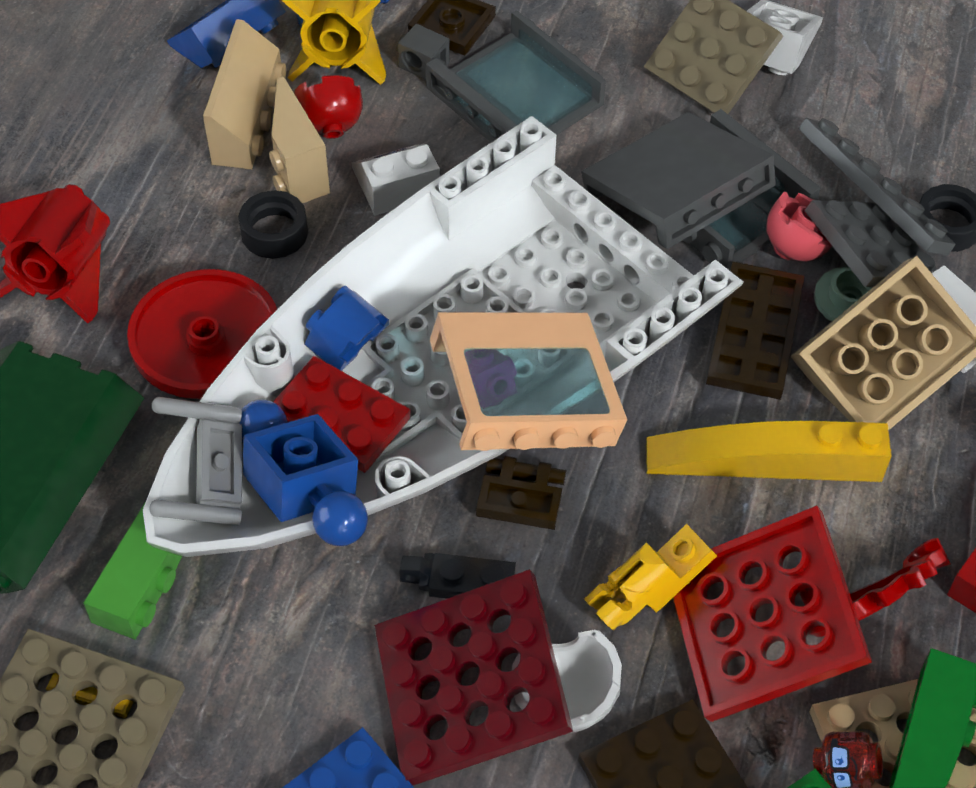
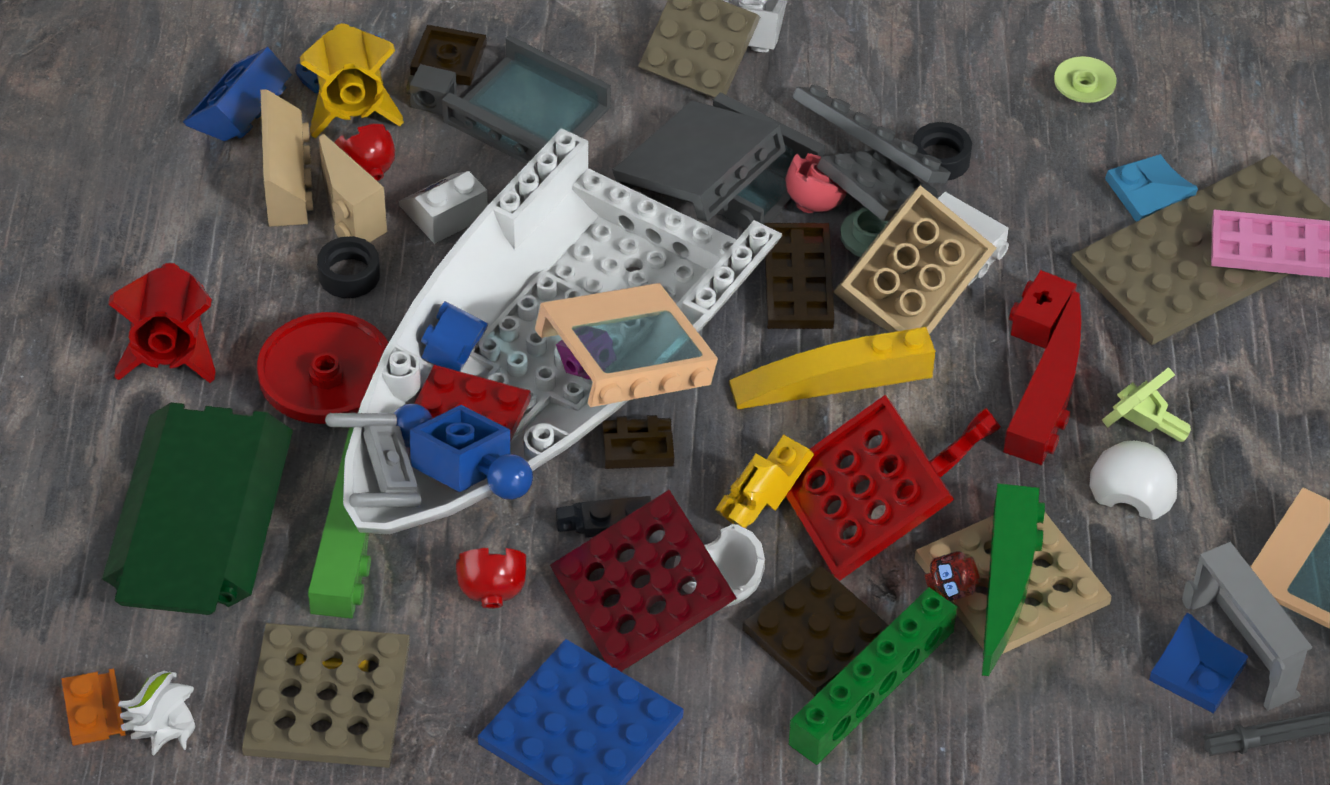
camera: 15 degrees left, 5 degrees down
(298, 629) = (491, 576): none -> red cylinder

